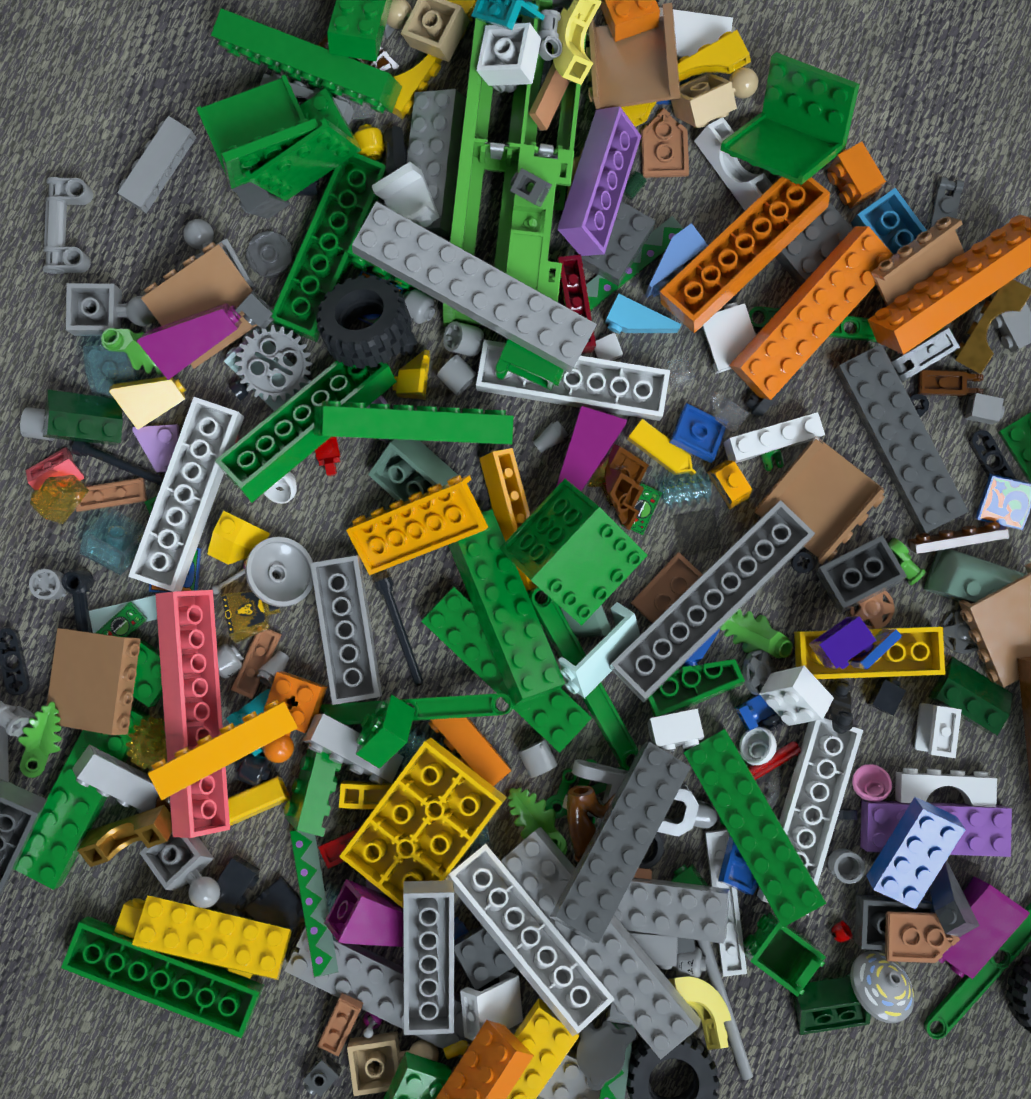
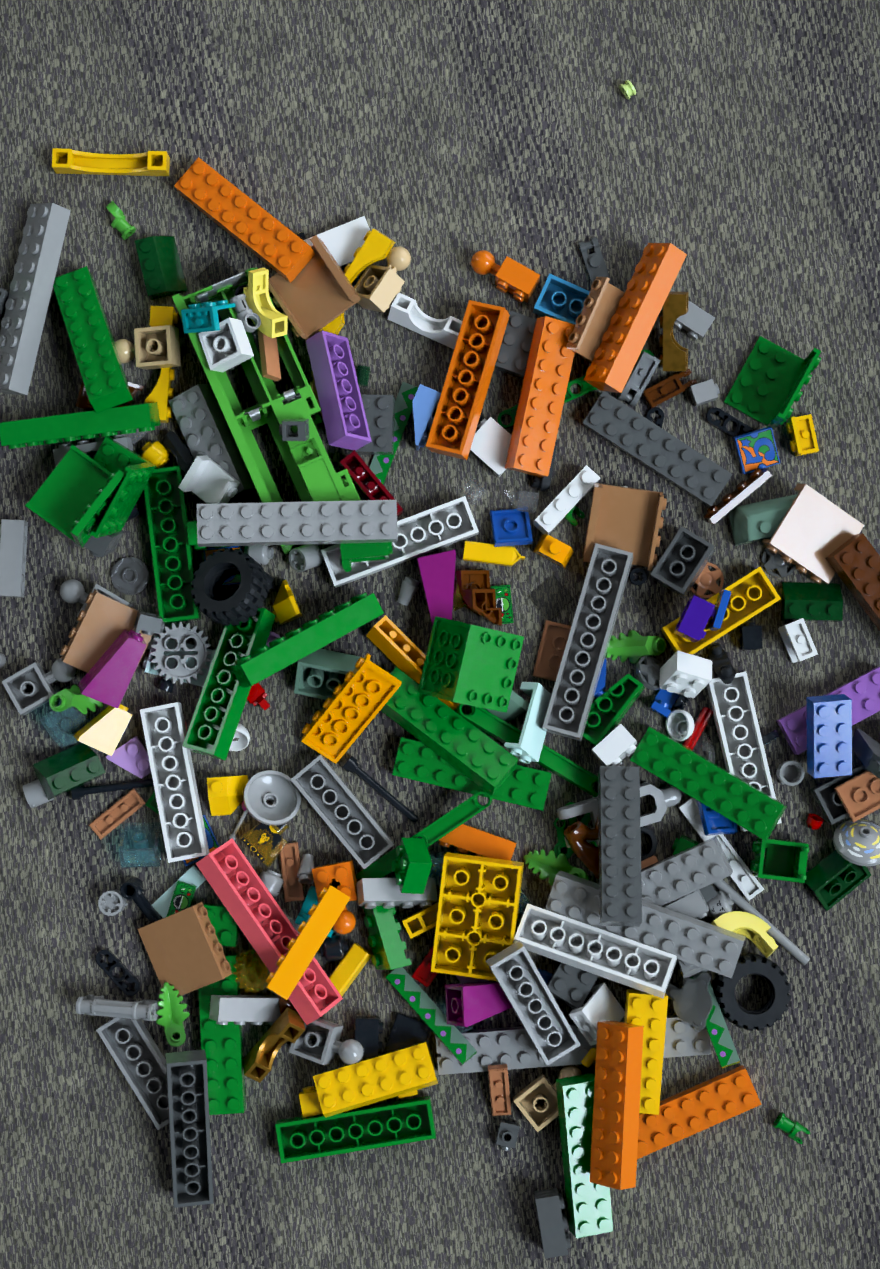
camera: 20 degrees left, 0 degrees up
(56, 465) = (69, 822): coral panel -> none
(58, 497) = (84, 839): clear yellow torso -> none
(372, 1023) = (520, 1075): hinge -> none
(457, 375) = (315, 585): light grey piece -> none
(537, 758) = (530, 823): light grey piece -> none
(608, 348) = (411, 503): white slope -> none
(635, 318) = (417, 471): medium azure slope -> none
(664, 147) = (369, 335): nougat tile -> none
(686, 491) = (526, 574): clear light blue piece -> none
(801, 121) = (455, 273): green bracket -> none
(872, 783) = (775, 704): bright pink piece -> none
(901, 552) = (711, 536): bright green connector -> none
(976, 789) = (851, 666): white arch -> none

